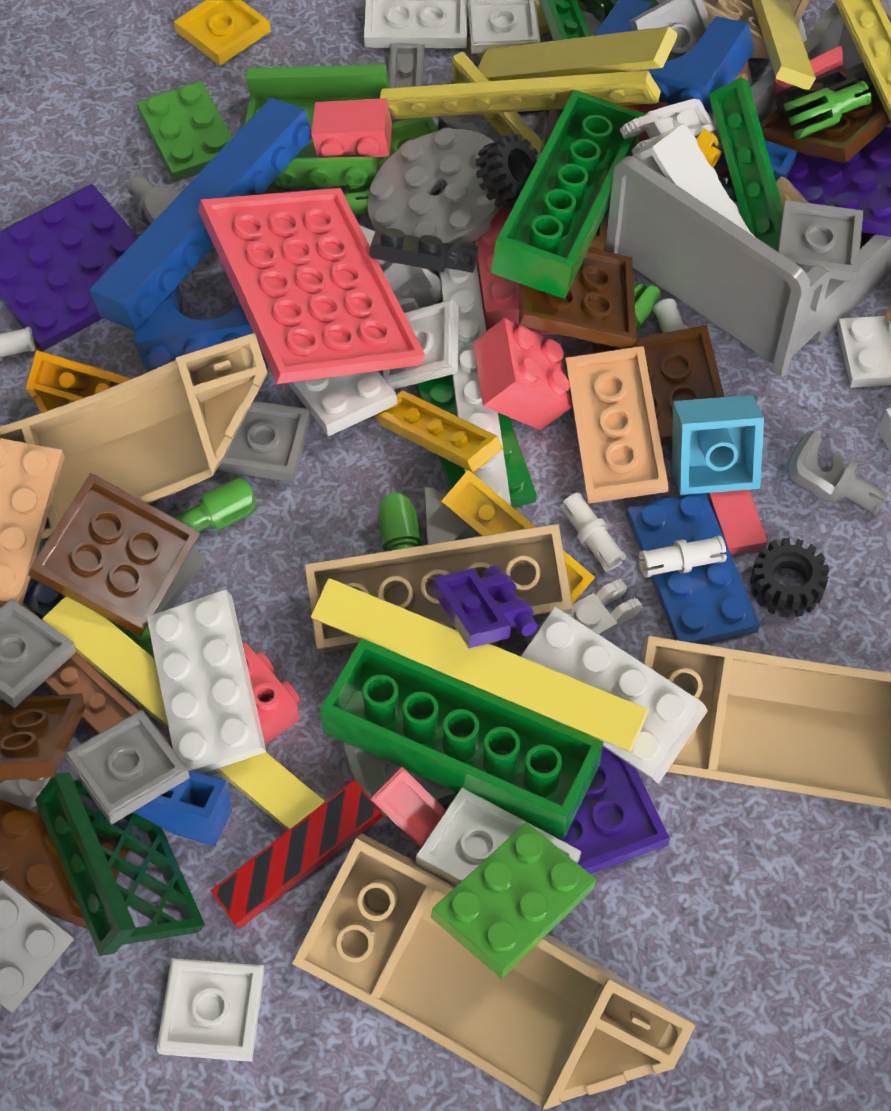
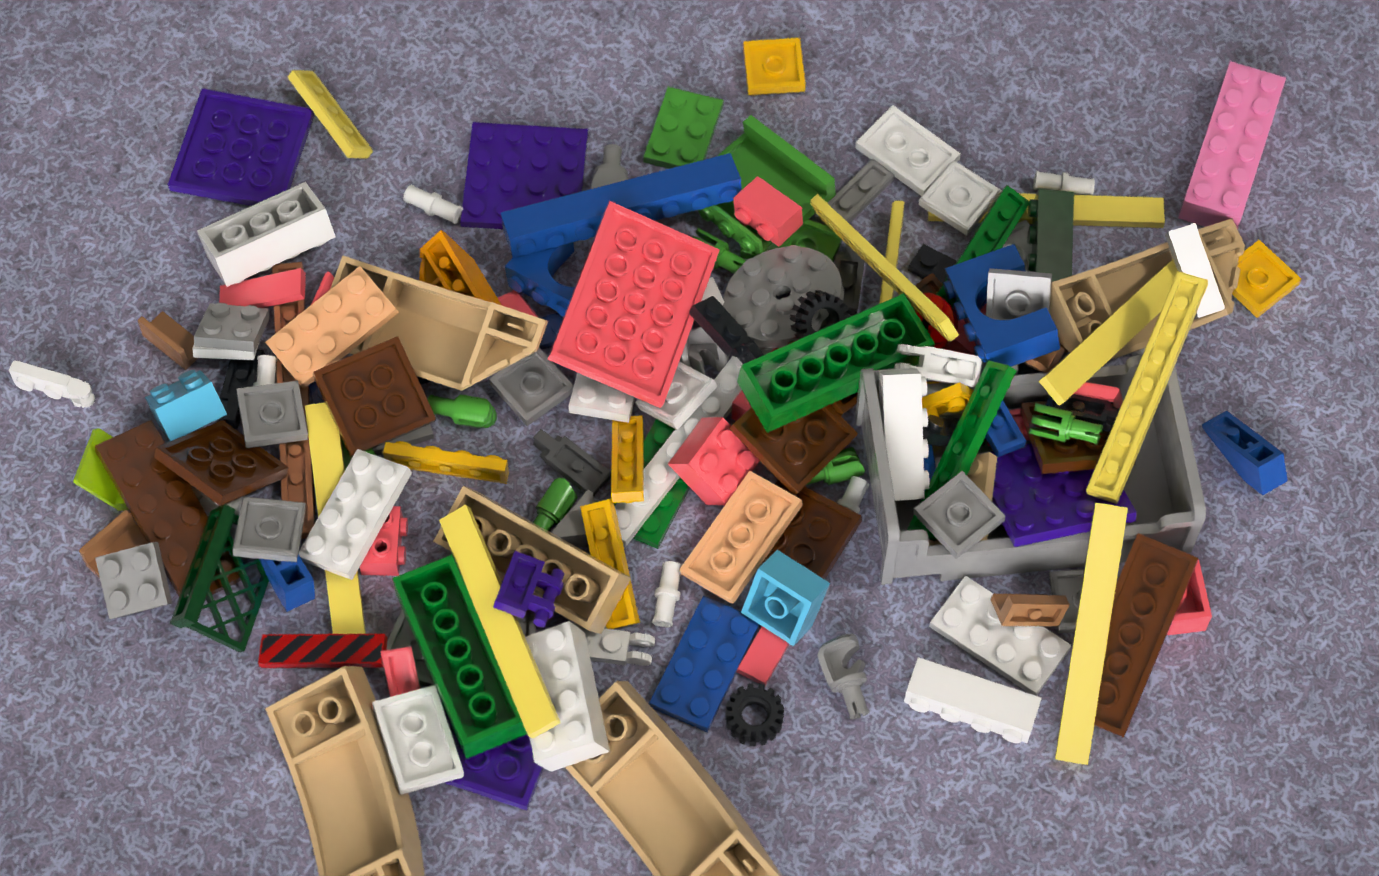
camera: 40 degrees right, 5 degrees up
(211, 1010) = (208, 699): white tile -> none
(254, 566) = (456, 463): none -> yellow plate
(373, 480) = (572, 462): none -> dark grey hinge
(513, 899) = (397, 766): bright green plate -> none
(581, 55) = (938, 267): light yellow tile -> none
(682, 556) = (695, 650): white pin -> none

